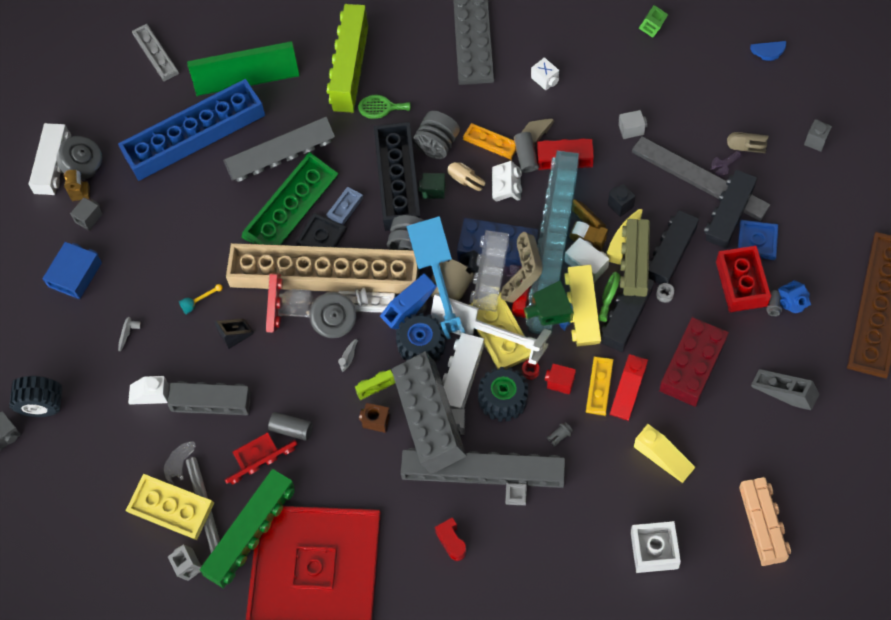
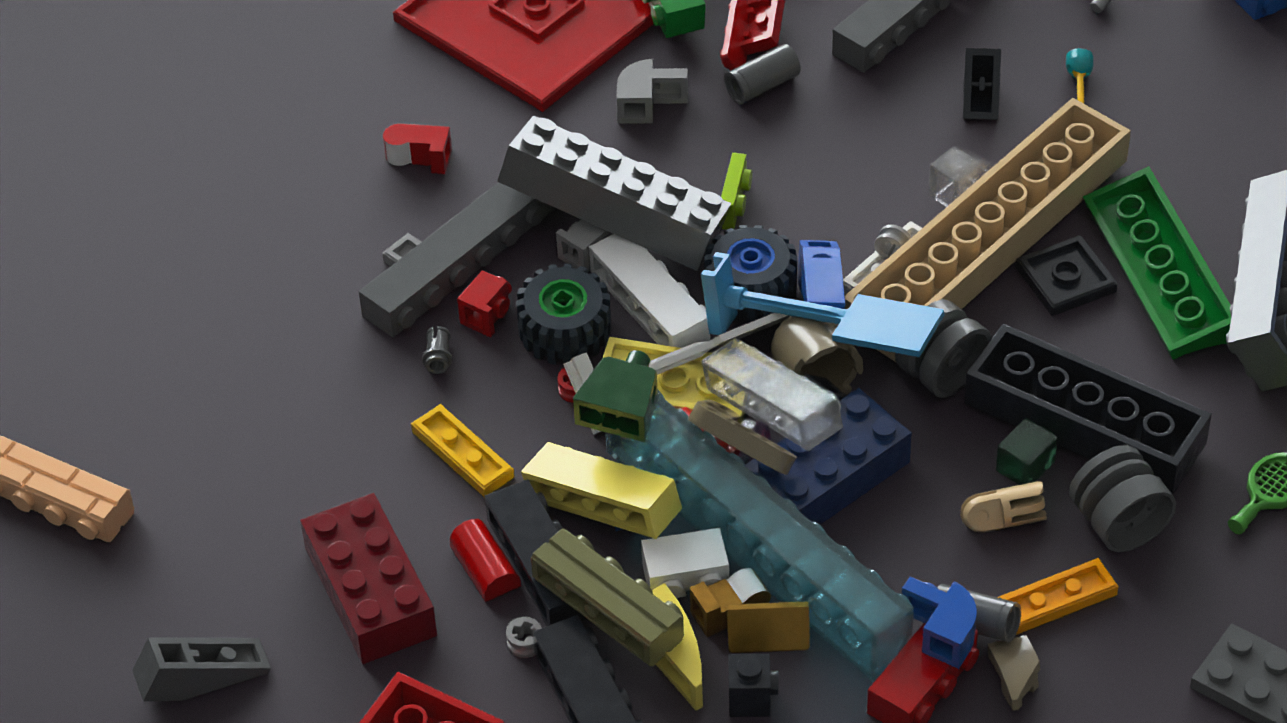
camera: 125 degrees right, 15 degrees down
(274, 302) = (978, 131): plate -> none
(332, 315) = (894, 192): dark grey wheel -> none
(340, 471) = (642, 86): none -> light grey brick
(345, 206) = (1094, 325): sand blue plate -> none
(347, 356) = (813, 192): light grey bar -> none
(380, 423) = (682, 159): reddish brown brick -> none
(506, 181) = (940, 557): white bracket -> none
(519, 434) = (484, 302): none -> red brick
(546, 143) = (948, 619): none -> blue brick
(560, 378) = (518, 401): red brick -> none
(608, 294) = (559, 503): bright green piece -> none
(629, 387) = (421, 479): slope -> none
(645, 332) = (483, 559): none -> red brick
(655, 547) = (160, 334): white brick -> none
(663, 453) = (281, 443): light yellow slope -> none

